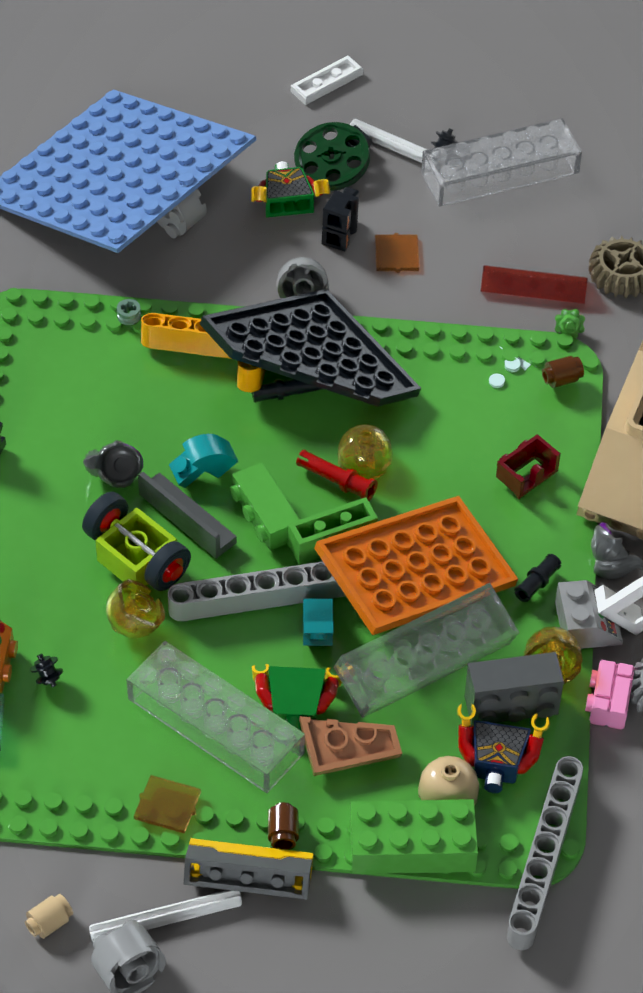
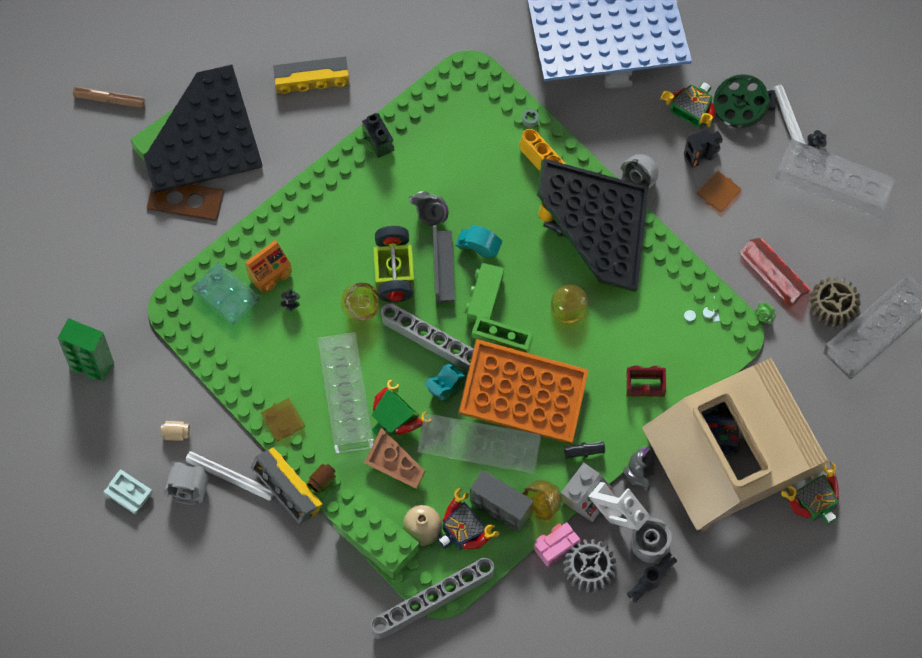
camera: 45 degrees right, 15 degrees up
(326, 80) = (794, 45): white tile -> none
(346, 479) = (543, 313): red pin -> none
(563, 371) = (725, 340): reddish brown brick -> none

